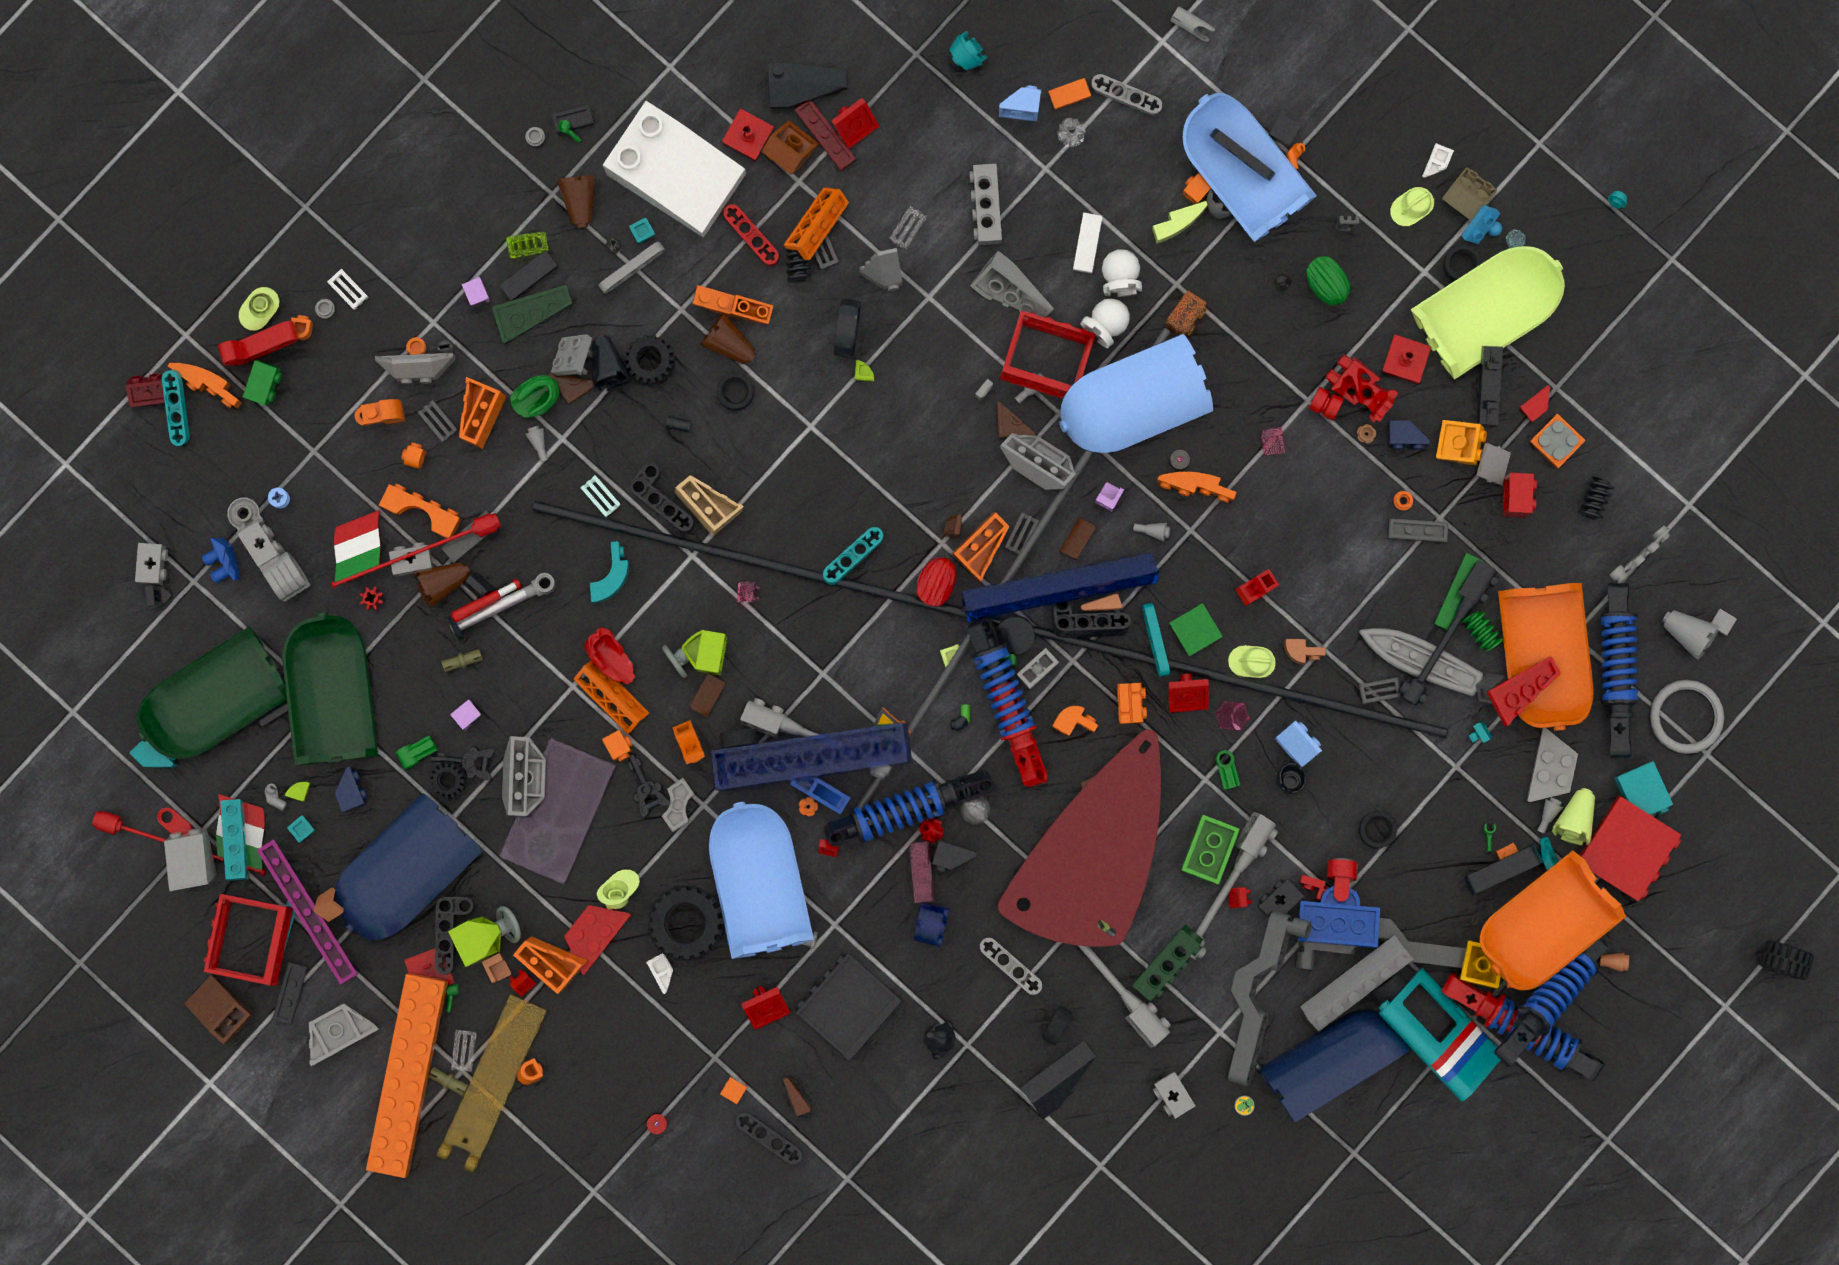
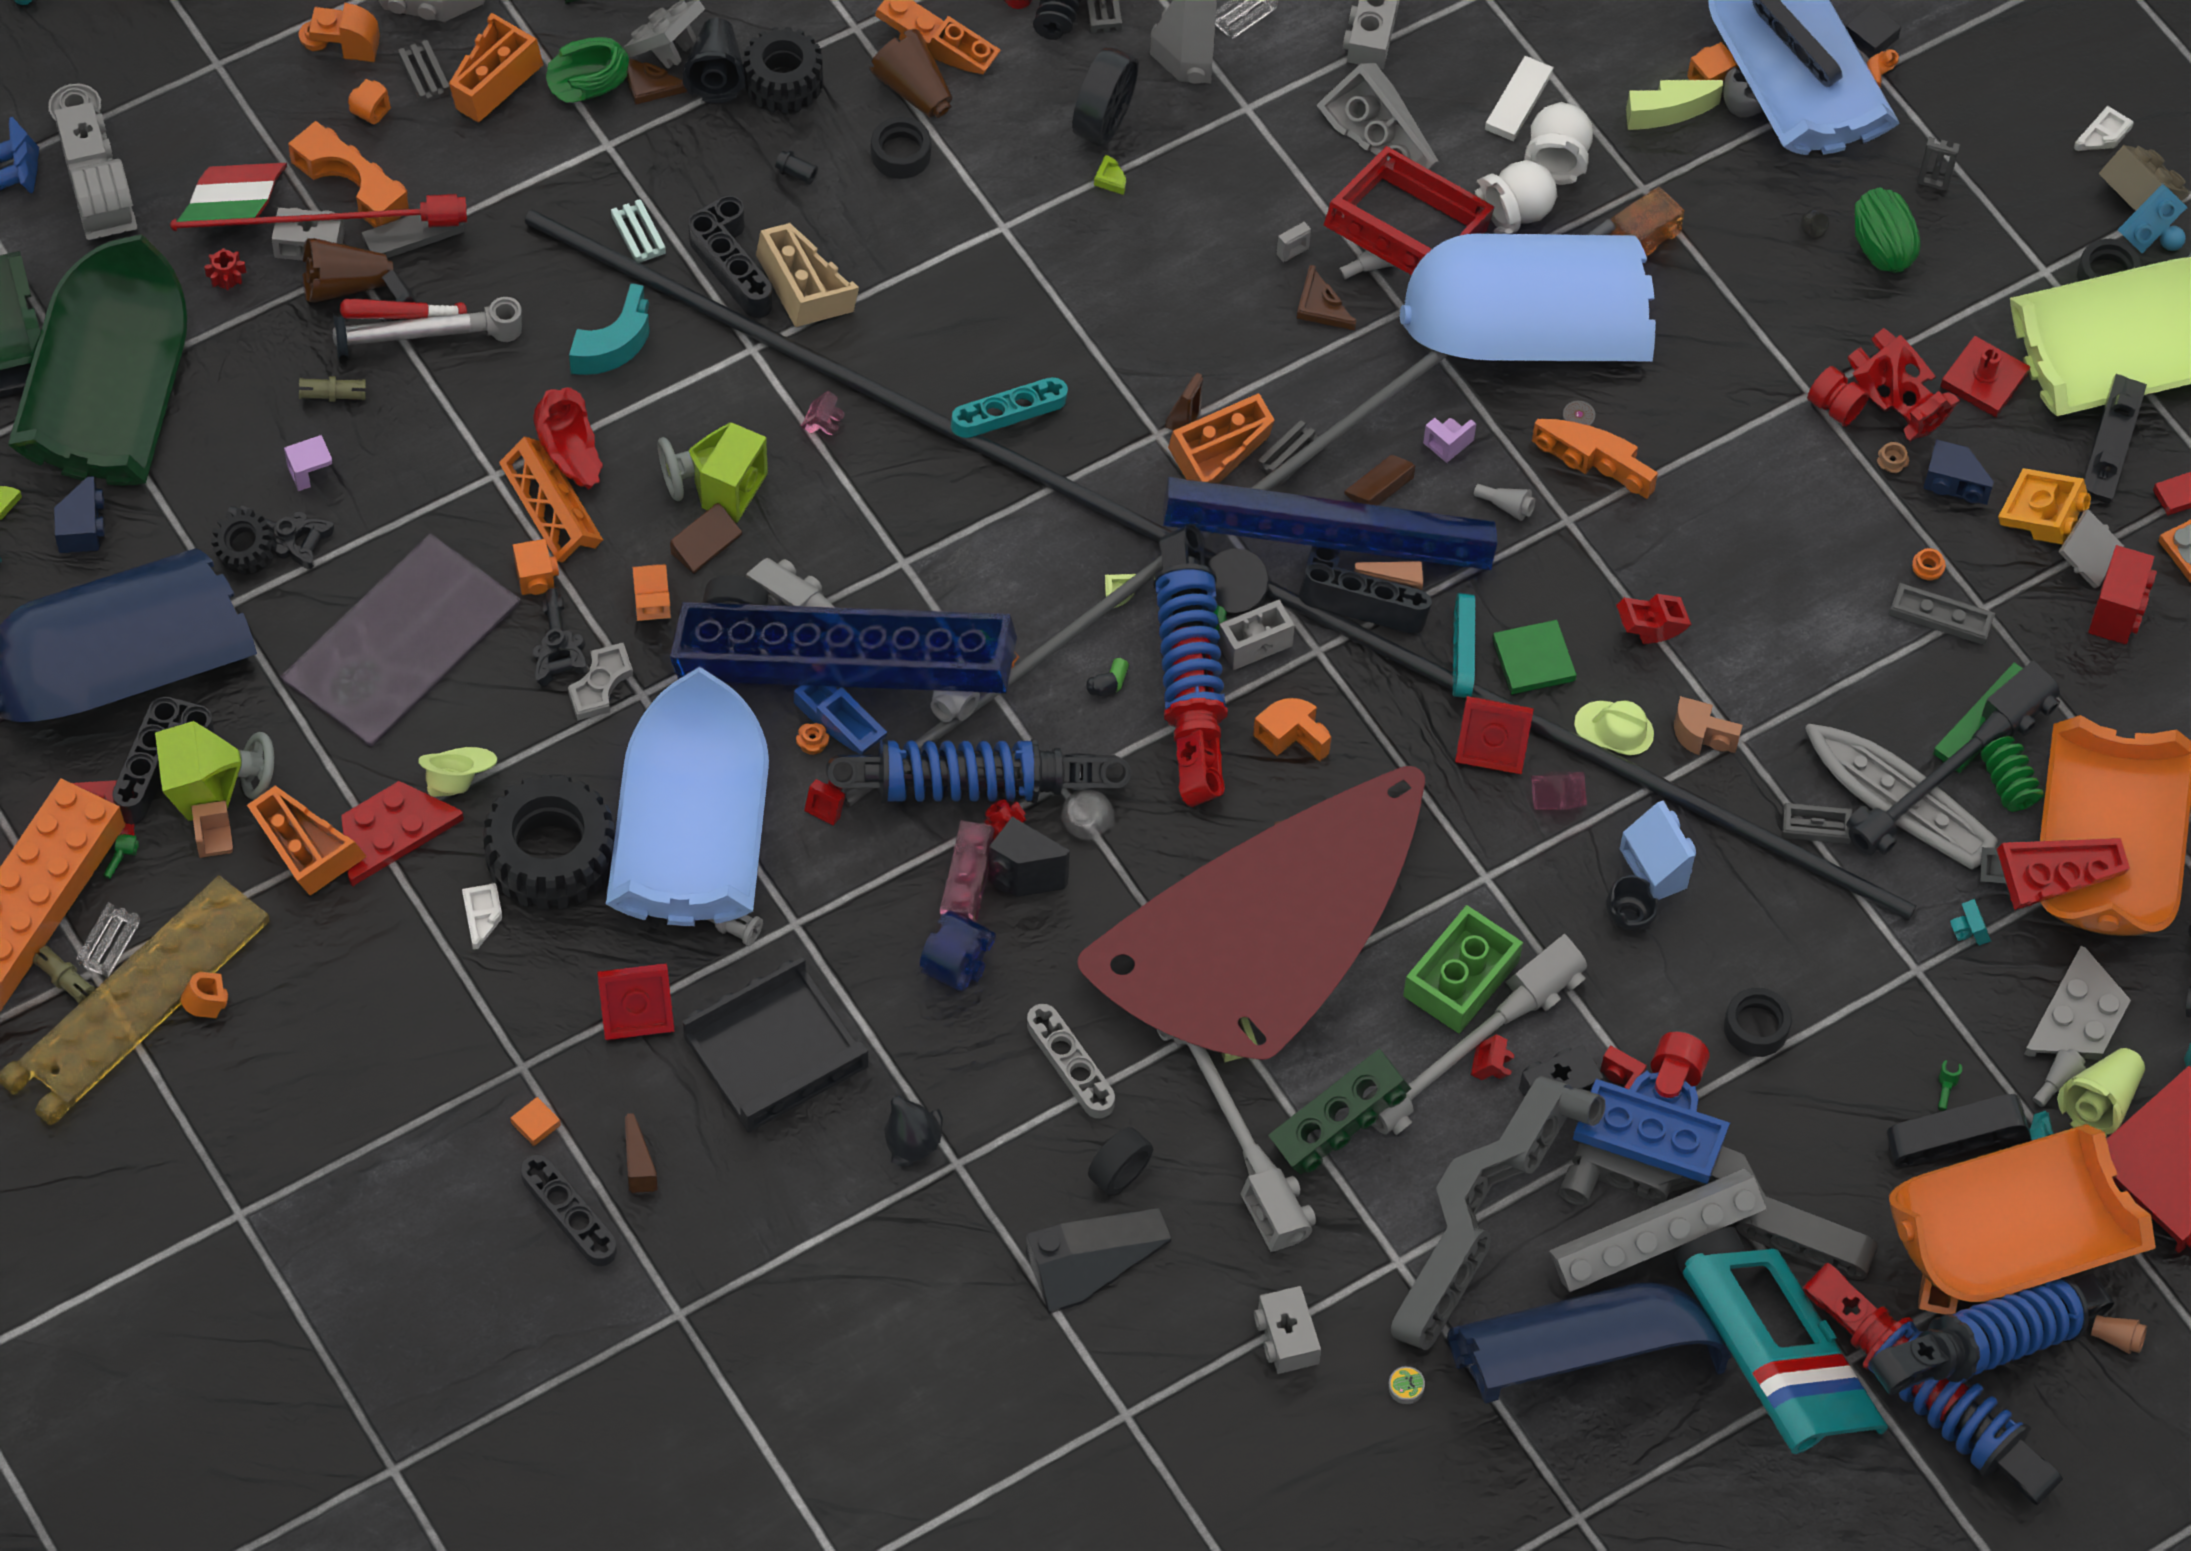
camera: 10 degrees right, 25 degrees down
(281, 500) = (143, 110): light blue wheel -> none
(412, 754) = (198, 494): green piece -> none
(522, 776) = (367, 562): light grey wedge -> none
(522, 983) = (245, 863): red tile -> none
(536, 438) = (568, 127): light grey cone -> none
(657, 1124) = (386, 1136): red tile -> none
(936, 581) = (1133, 469): red hair -> none
(1038, 461) = (1345, 351): light grey wedge -> none
(1130, 703) = (1394, 727): orange brick -> none
(1228, 771) = (1527, 865): green piece -> none
(1272, 441) = (1737, 427): clear pink panel -> none
(1412, 206) = (2049, 179): yellowish green piece -> none
(1477, 968) = (1880, 1264): yellow slope -> none

